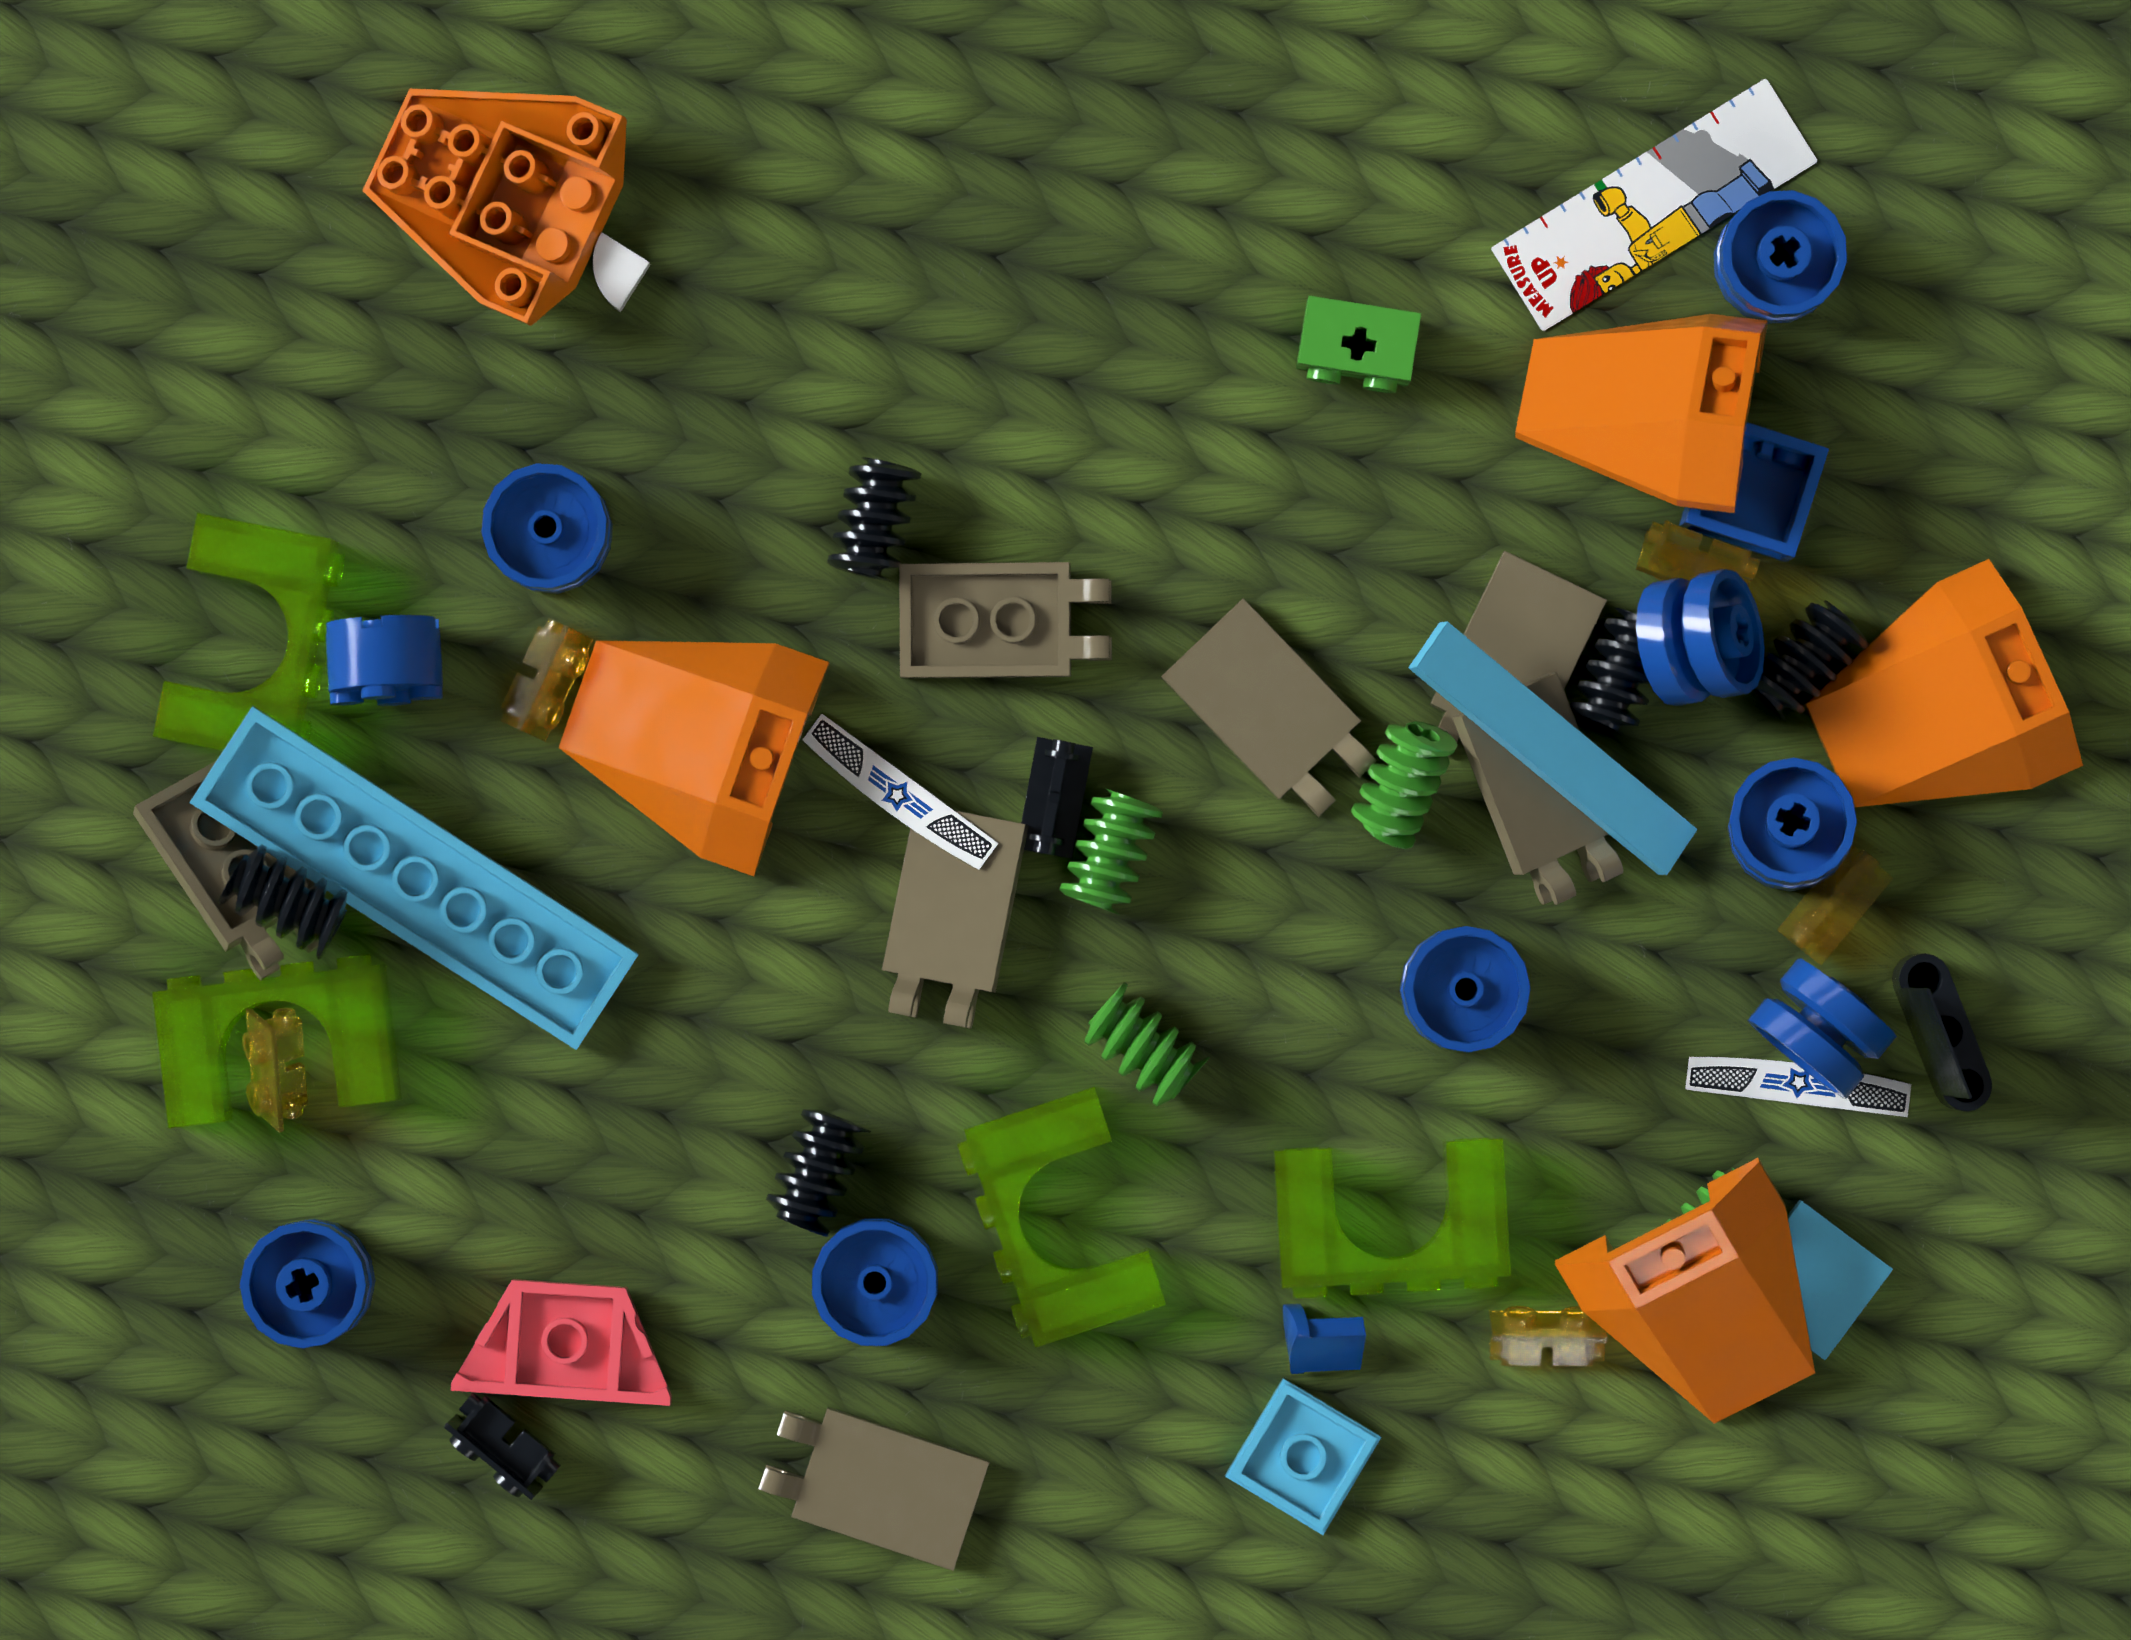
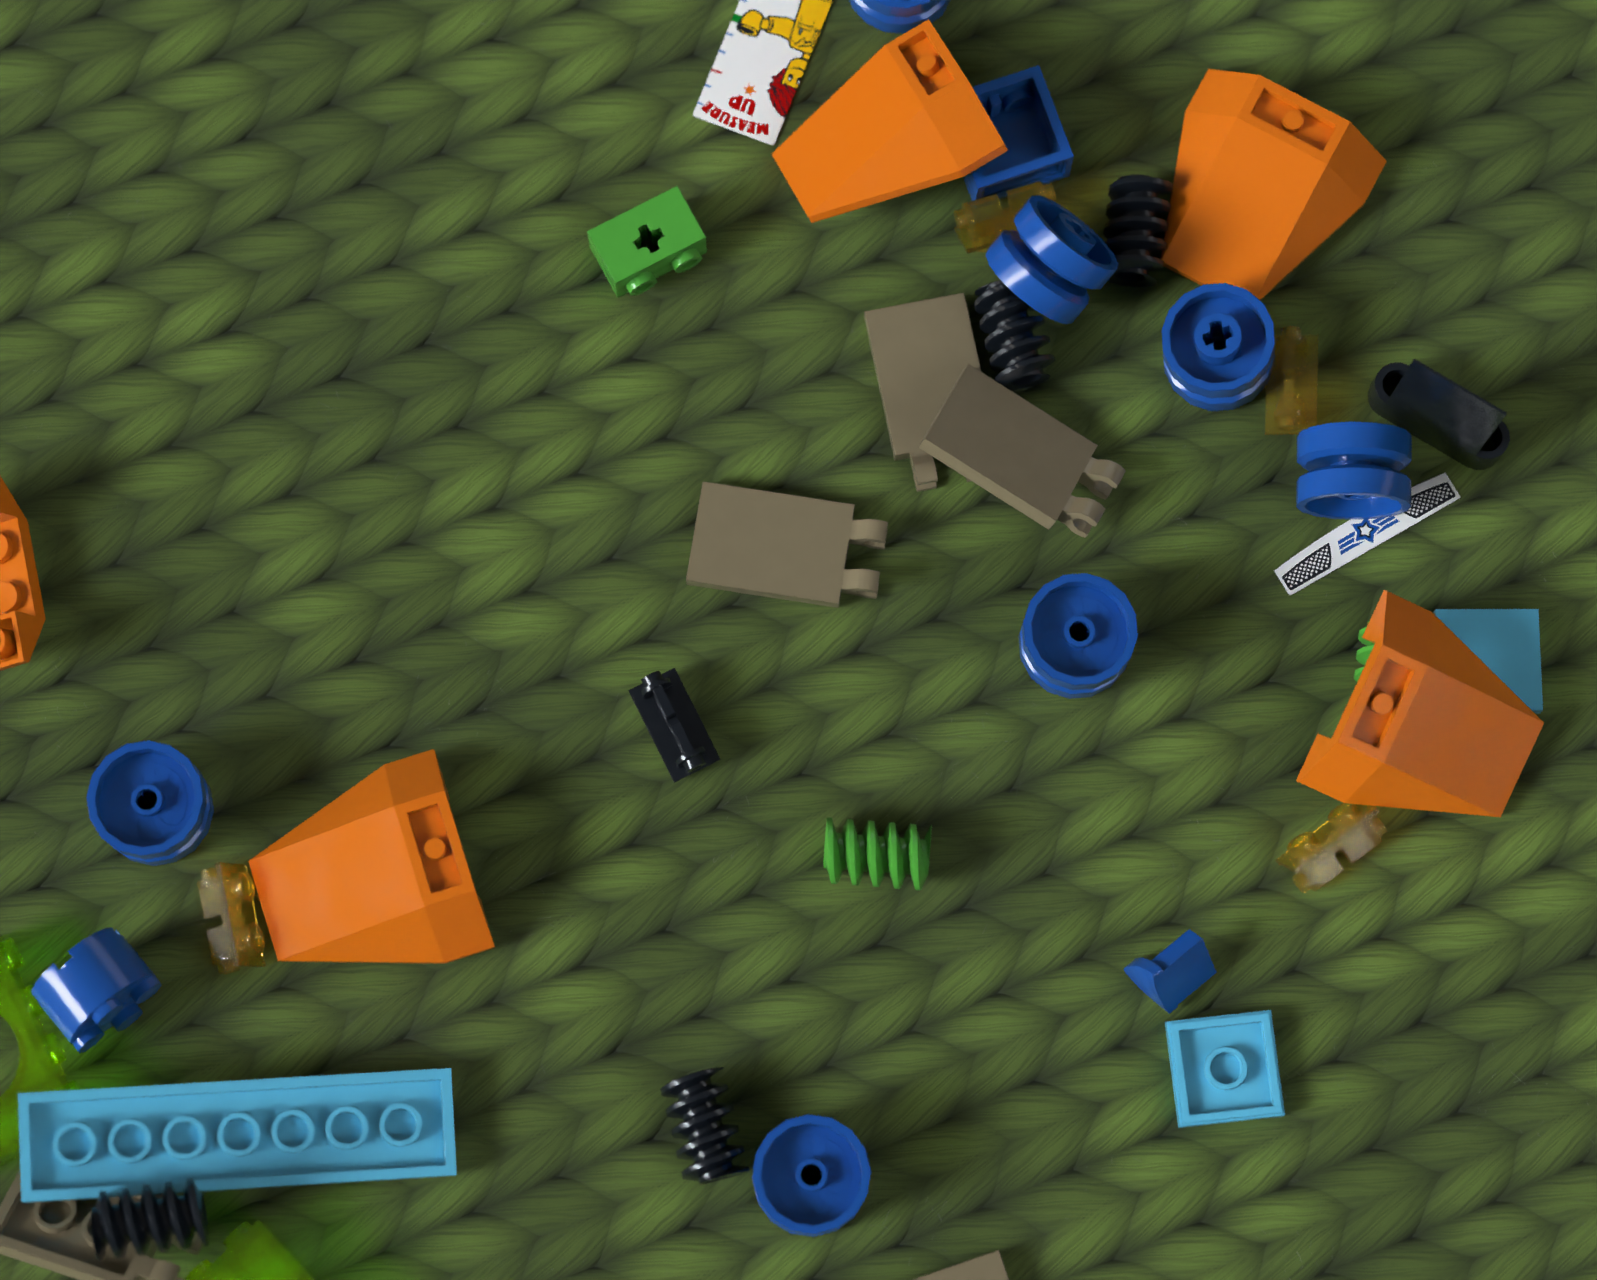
camera: 40 degrees left, 10 degrees down
(617, 270) = (68, 584): white tile -> none
(873, 518) = (388, 622): black piece -> none
(899, 793) = (557, 806): white sticker -> none
(953, 920) = (660, 859): dark tan tile -> none
(995, 620) = (535, 629): dark tan tile -> none
(1052, 1297) = (950, 1090): clear neon green arch -> none
(1110, 851) = (743, 731): bright green piece -> none
(1405, 782) = (920, 520): bright green piece -> none
(1467, 1244) = (1221, 816): clear neon green arch -> none
(1552, 748) = (1006, 416): medium azure tile -> none

